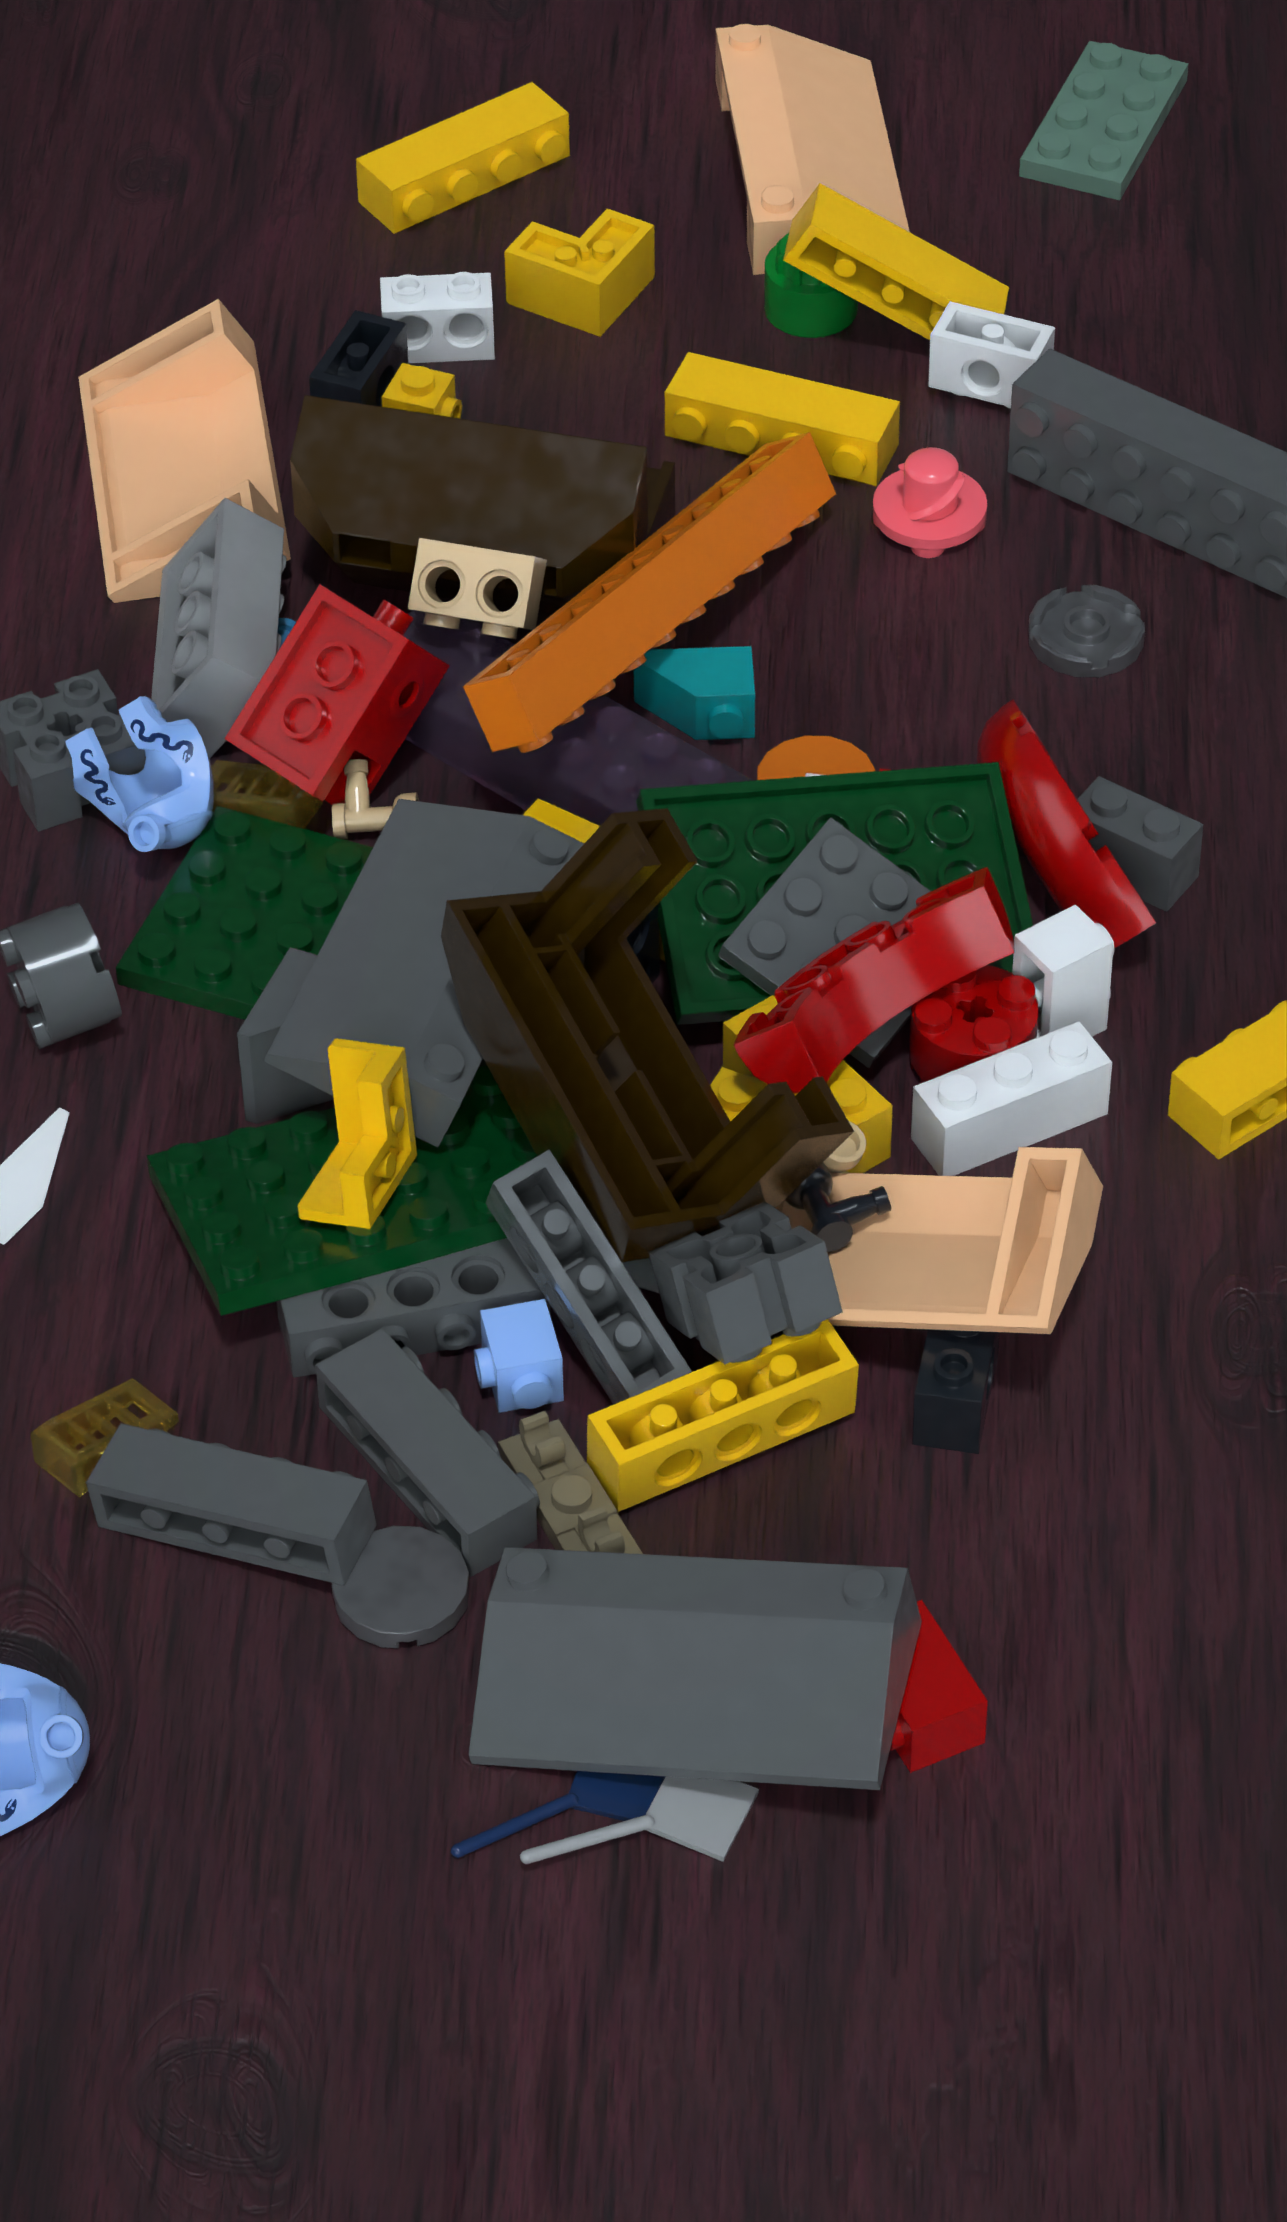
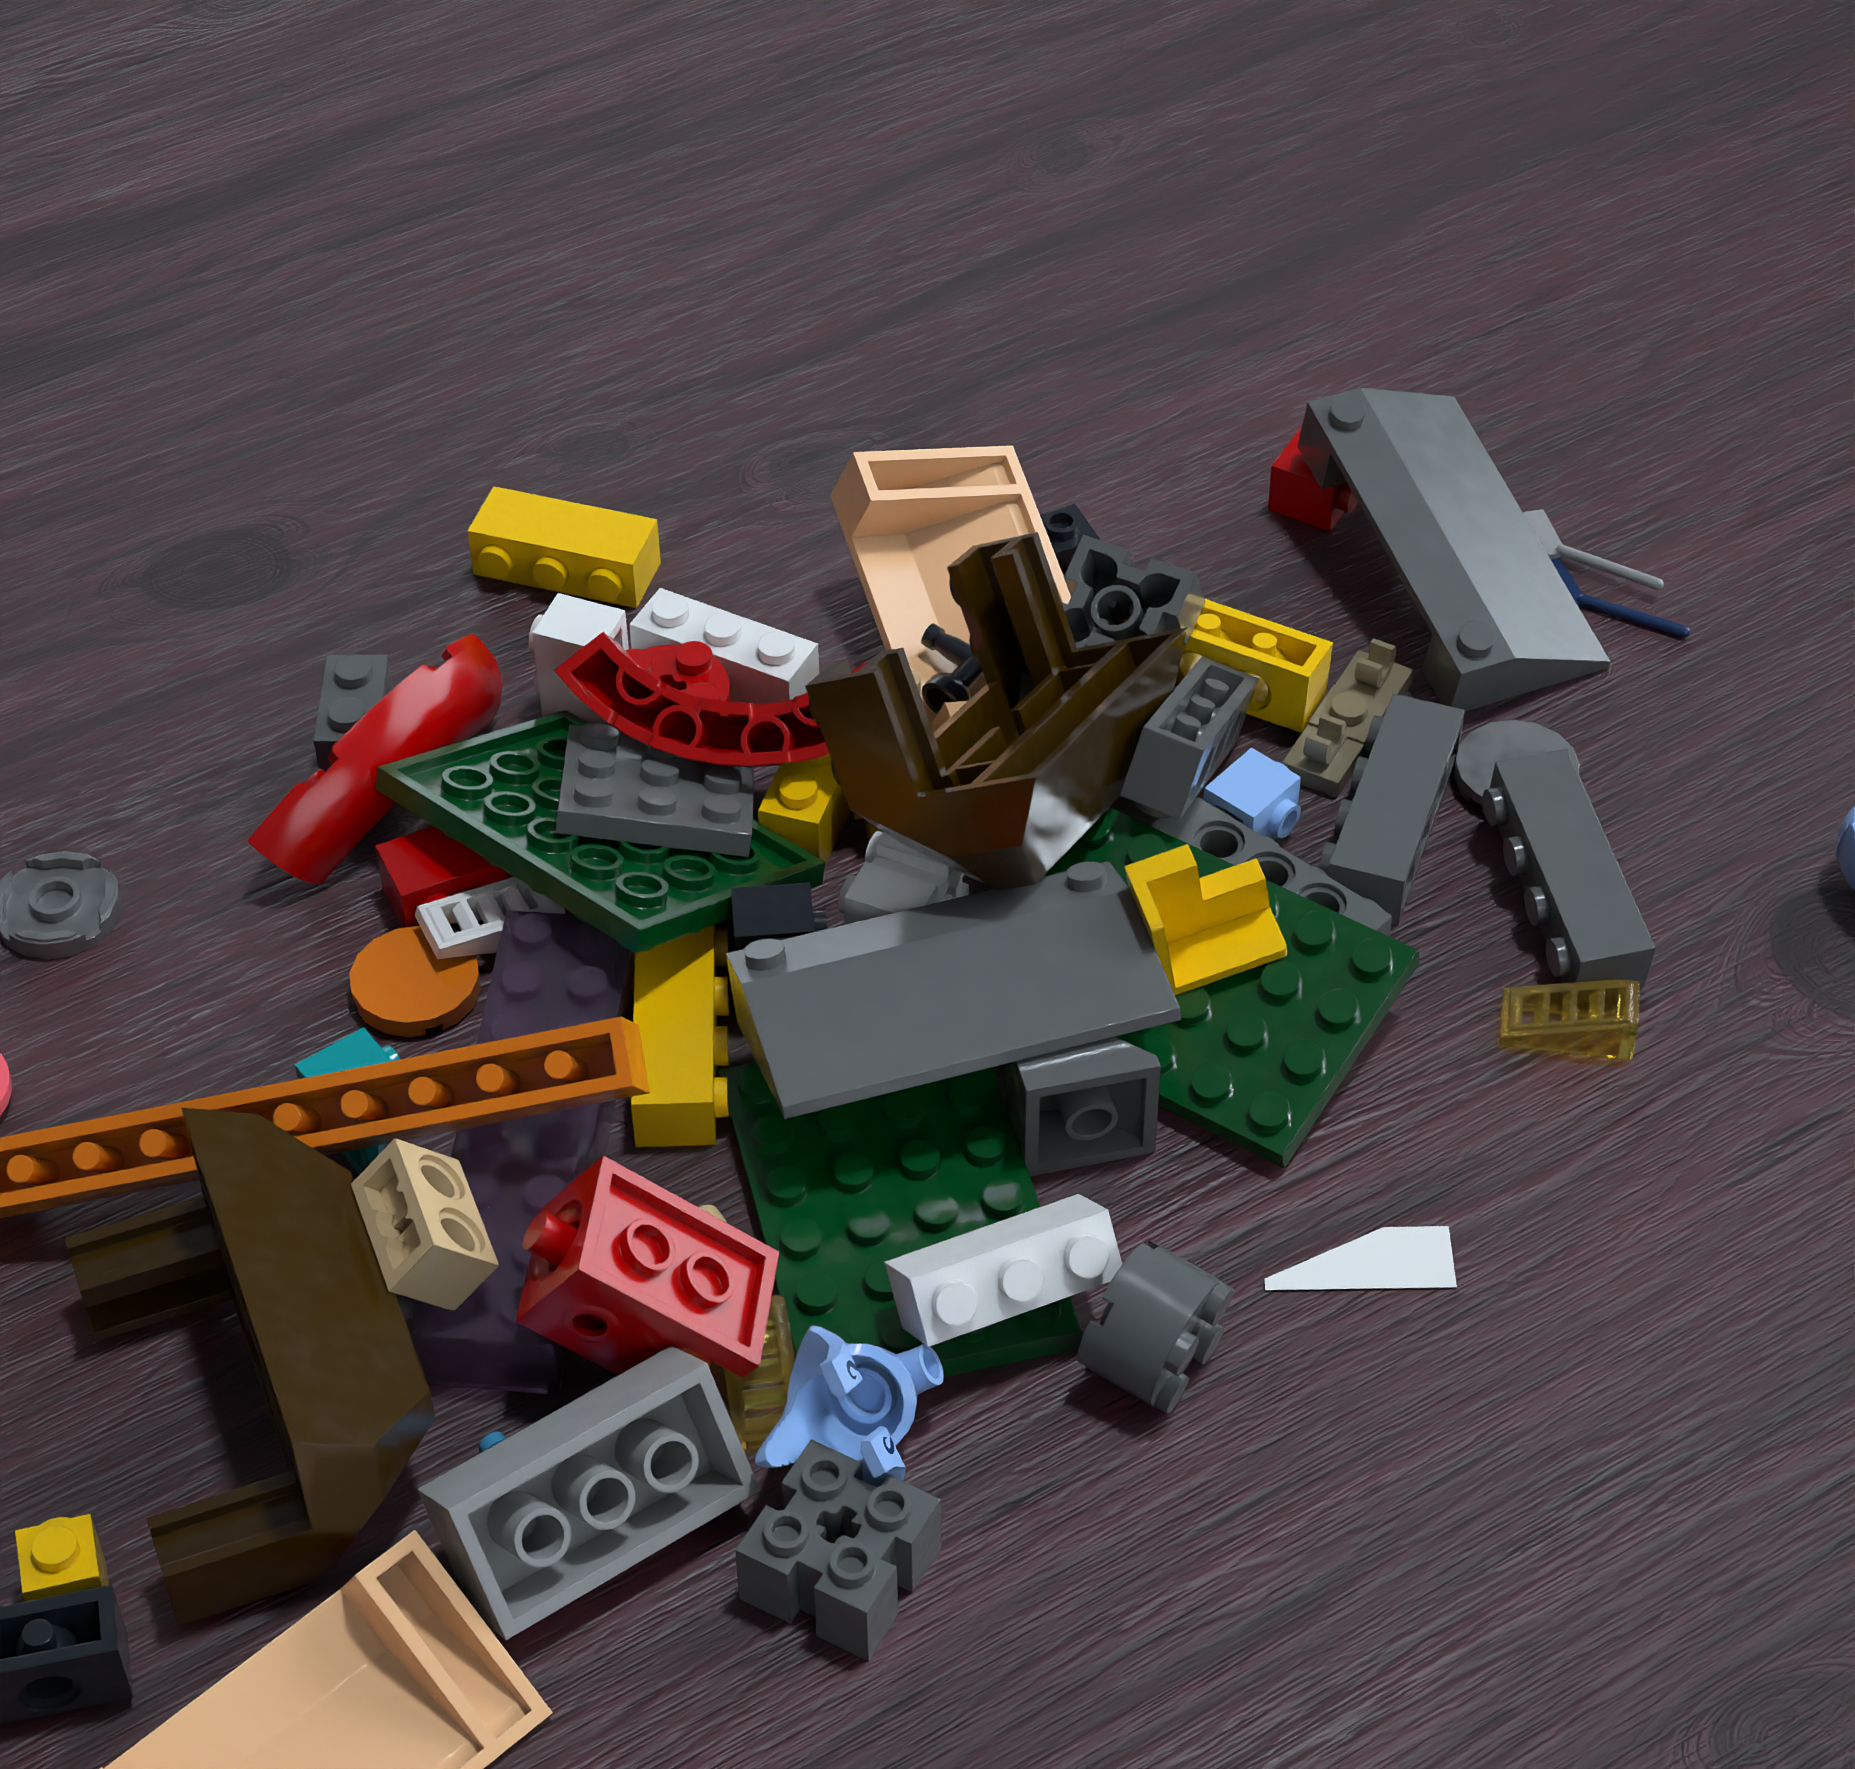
camera: 125 degrees left, 0 degrees up
(169, 893) = (1004, 1269): none -> white brick

